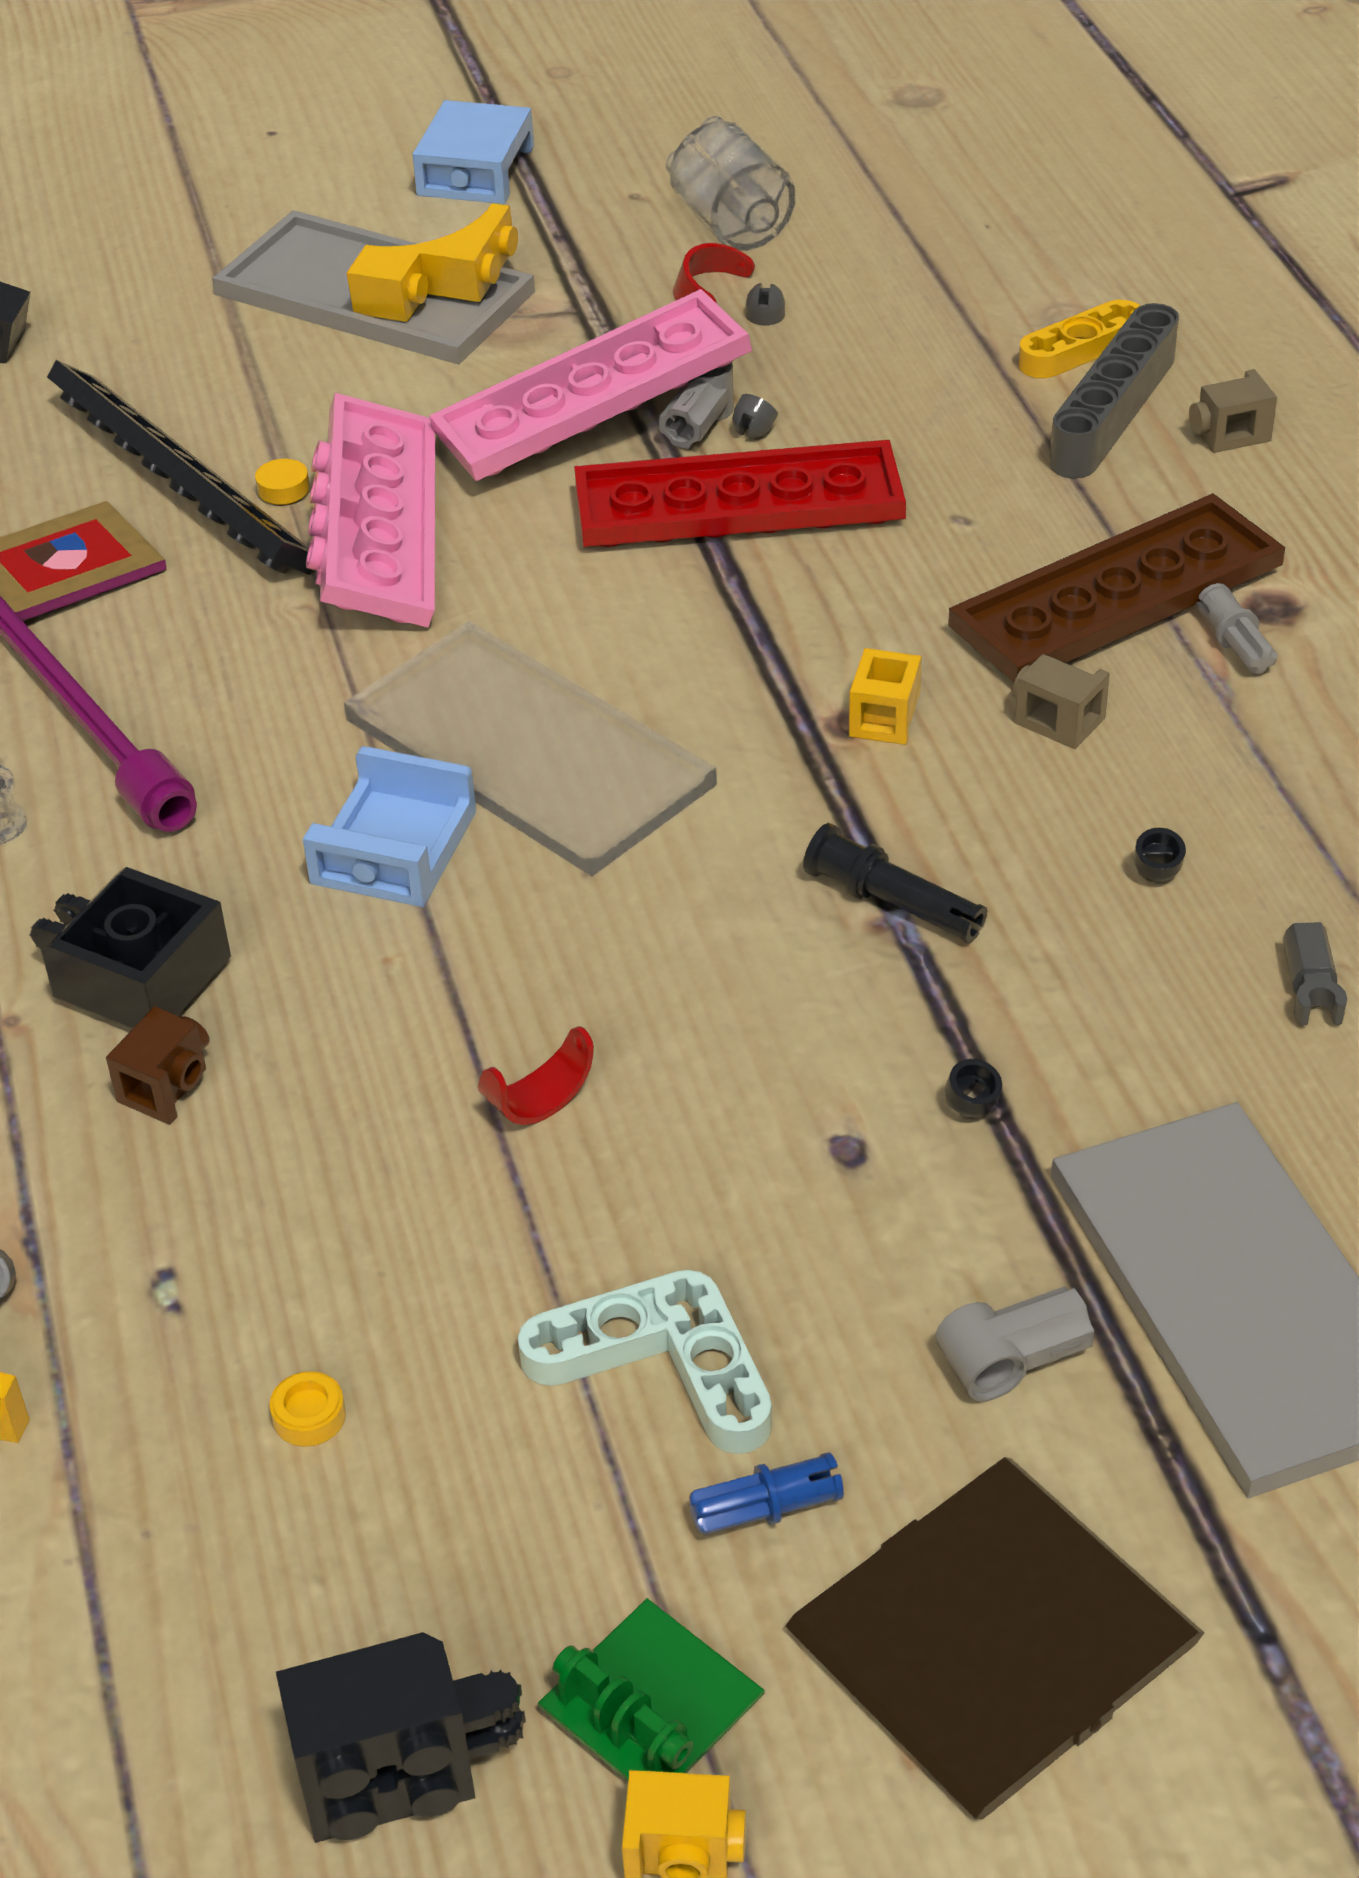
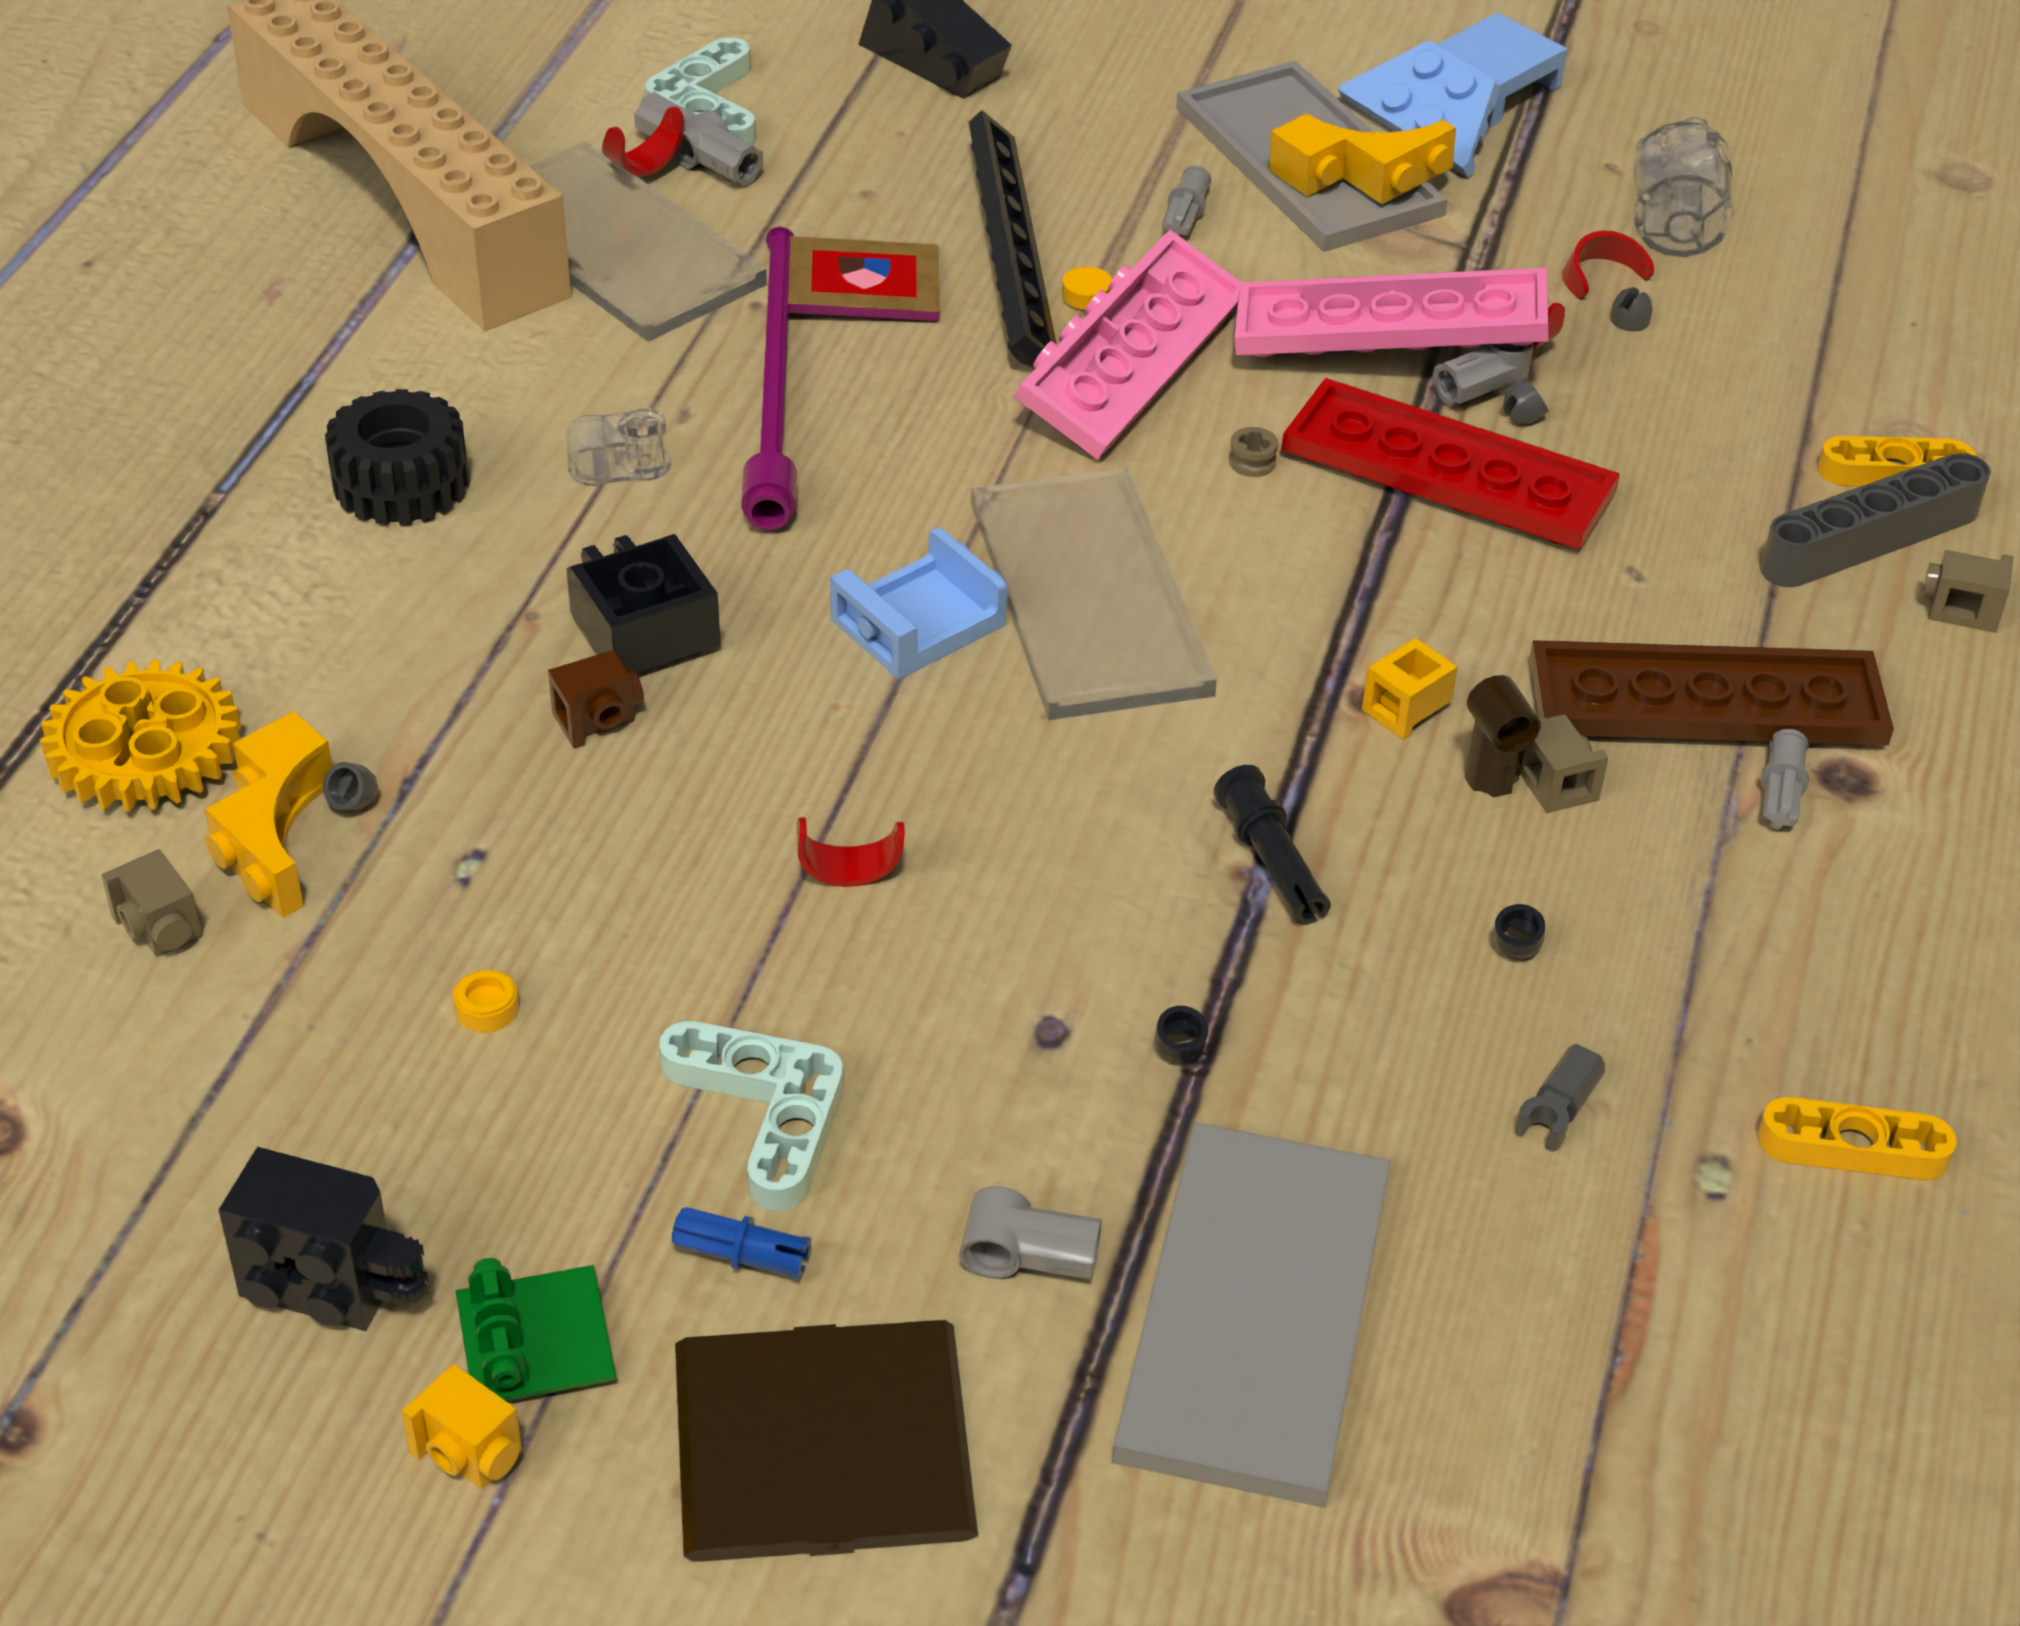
camera: 30 degrees right, 0 degrees up
(306, 368) = (1187, 200): none -> light grey axle
(438, 193) = (1424, 89): none -> light blue wing
(562, 558) = (1253, 451): none -> dark tan bush
(1010, 688) = (1500, 735): none -> dark brown piece

